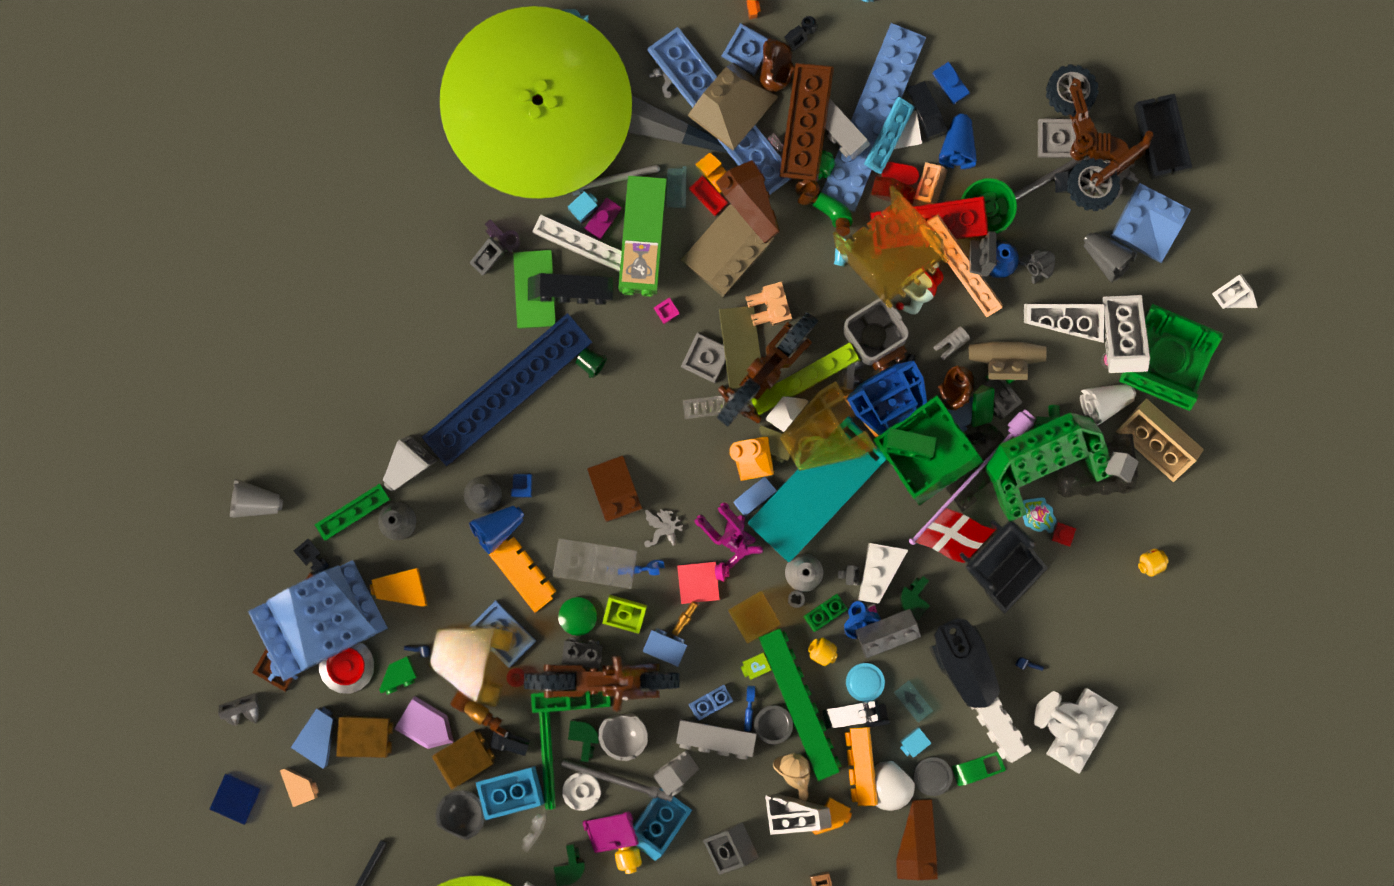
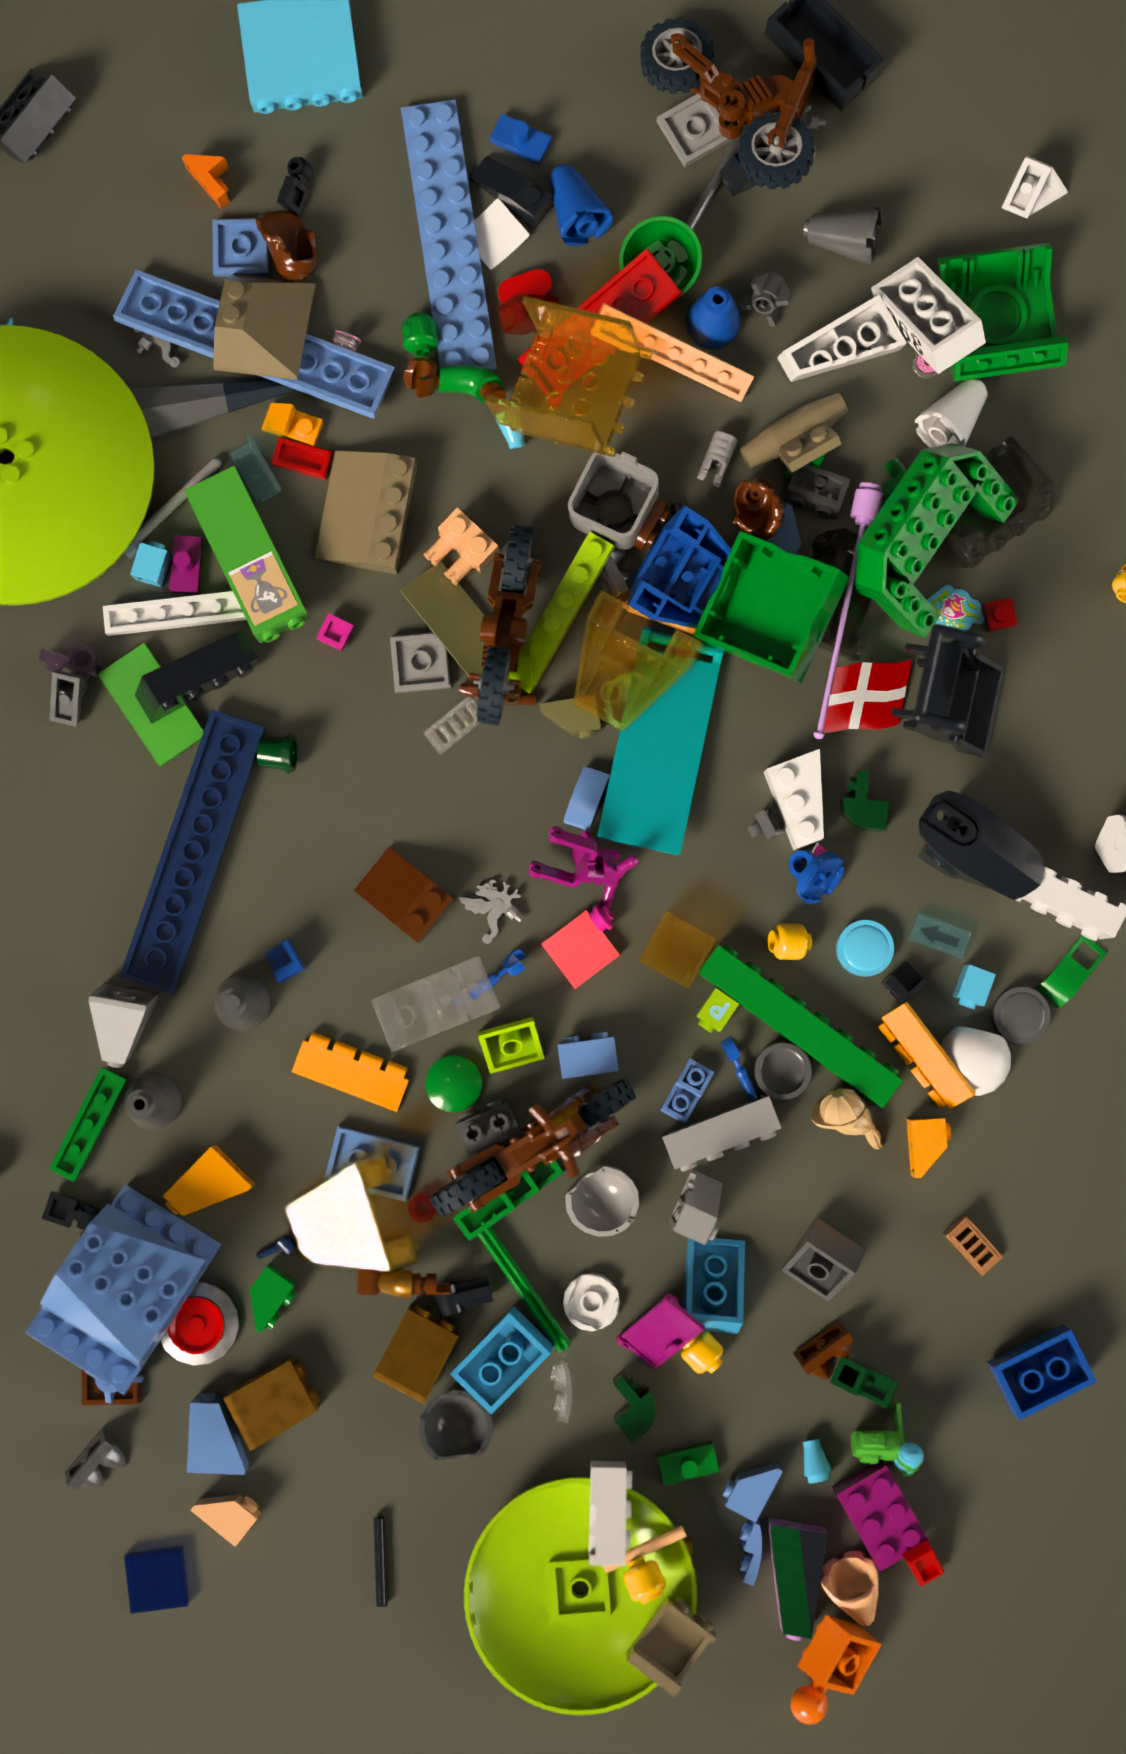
camera: 30 degrees left, 0 degrees up
(425, 724) = (342, 1337): lavender tile -> none
(496, 527) = (282, 1032): blue cone -> none
(585, 733) = (553, 1225): dark green brick -> none
(653, 791) = (682, 1248): flat silver bar -> none
(684, 618) = (590, 1004): pearl gold bar -> none
(747, 193) = (348, 421): reddish brown wedge -> none
(752, 458) = (554, 751): light orange slope -> none
(786, 411) = (561, 668): white slope -> none
(794, 574) = (701, 868): light grey cone -> none
(795, 815) = (881, 1169): light grey wedge -> none
(797, 593) = (713, 888): dark grey bush -> none
(806, 122) = (368, 288): reddish brown tile -> none
(825, 612) = (762, 891): green slope -> none
(844, 132) = (406, 271): light grey brick -> none
(851, 714) = (874, 999): hinge -> none
(888, 633) = (859, 869): flat silver slope -> none
(889, 135) = (483, 247): medium azure tile -> none
(909, 444) = (742, 612): green piece -> none
(918, 848) = (1059, 1119): reddish brown wedge -> none
(923, 292) = (642, 417): light aqua piece -> none
(931, 183) = (570, 277): light nougat slope -> none
(982, 405) = (804, 512): green slope -> none
(983, 255) = (692, 320): dark grey bracket -> none
(1022, 663) = (1047, 805): dark blue hand -> none
(1122, 466) = (1025, 479): light grey panel -> none
(1150, 222) = (873, 162): medium blue slope -> none
(1161, 440) = (1051, 424): tan slope -> none

